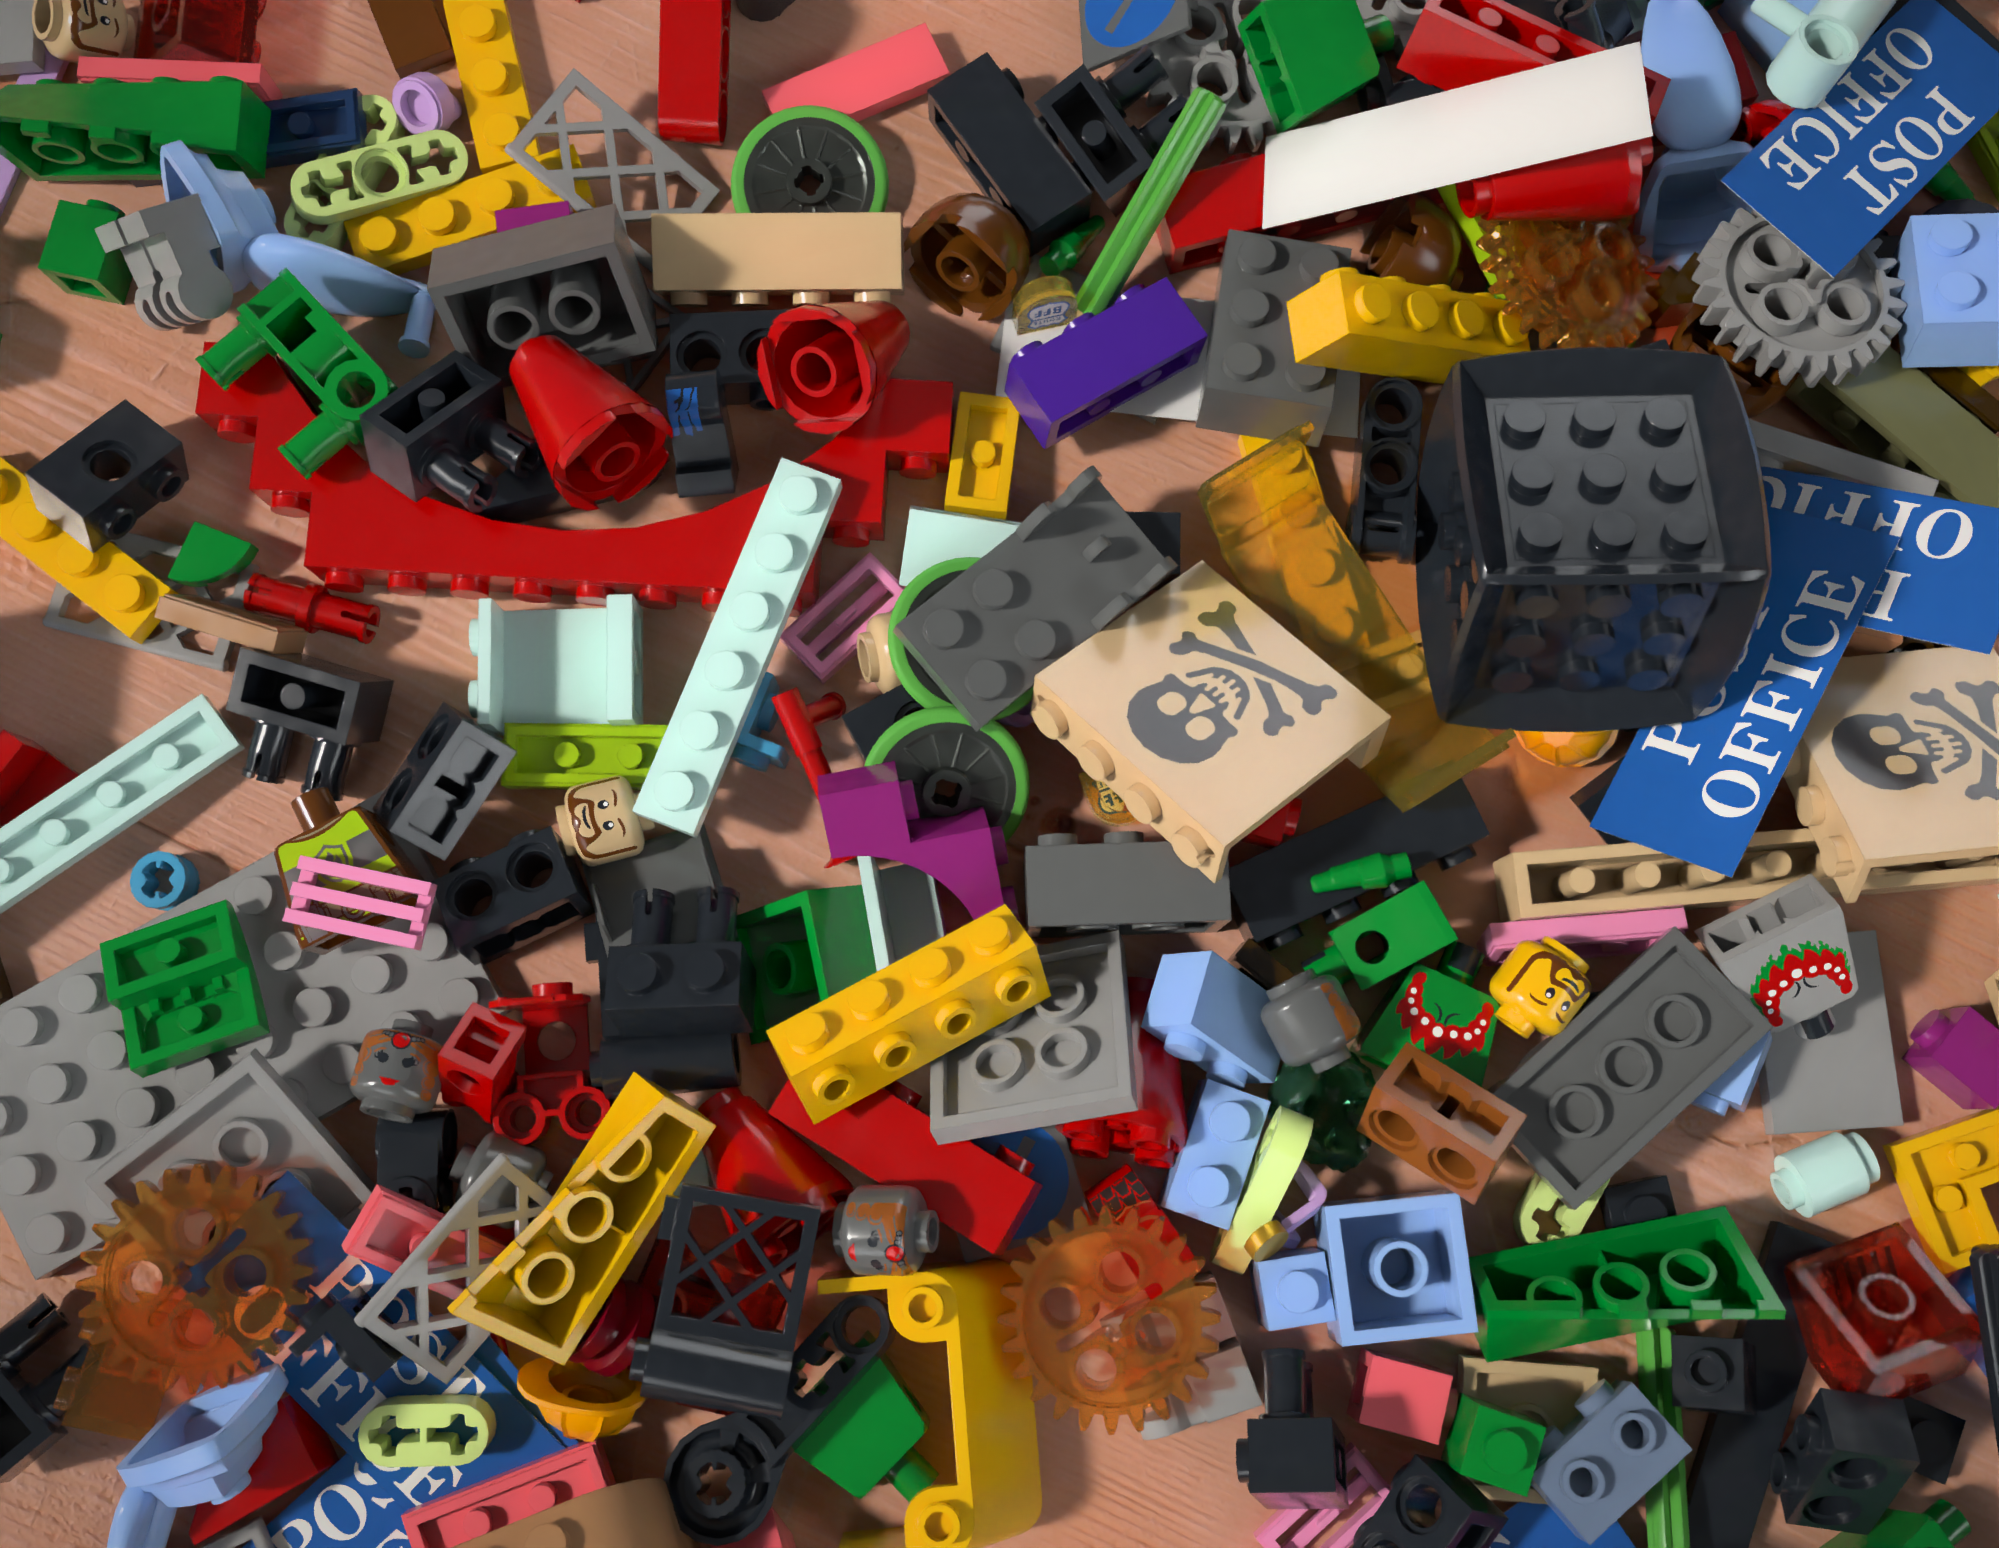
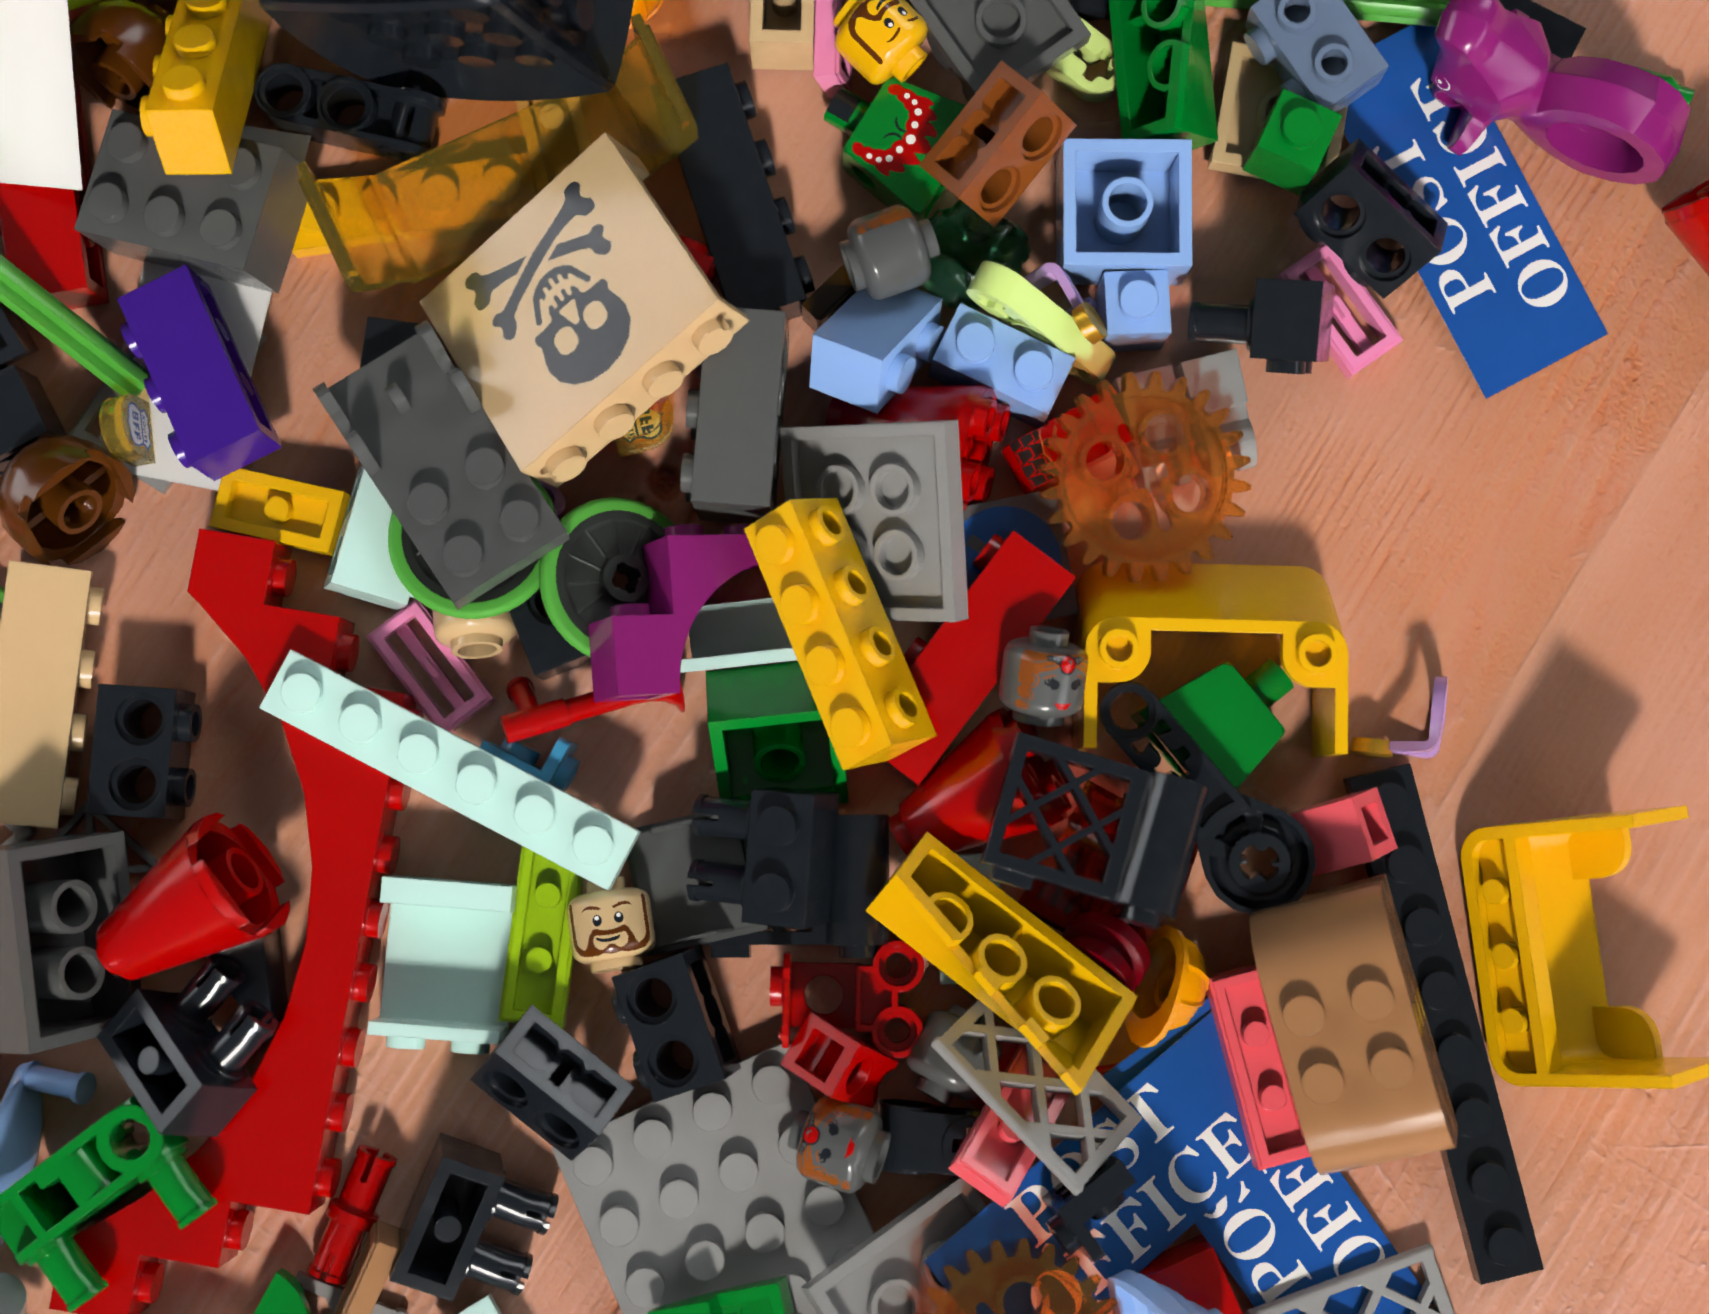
camera: 85 degrees left, 5 degrees up
(305, 891) = (651, 1222): bright pink tile -> none
(345, 838) = (635, 1188): torso -> none
(428, 1446) = (1198, 1140): yellowish green beam -> none
(701, 434) = (234, 790): black leg -> none
(831, 360) = (164, 647): red cone -> none
(1071, 246) = (67, 397): green piece -> none
(1368, 872) = (752, 181): green piece -> none
(1402, 1396) = (1240, 223): coral brick -> none
(1407, 924) = (812, 153): green torso -> none

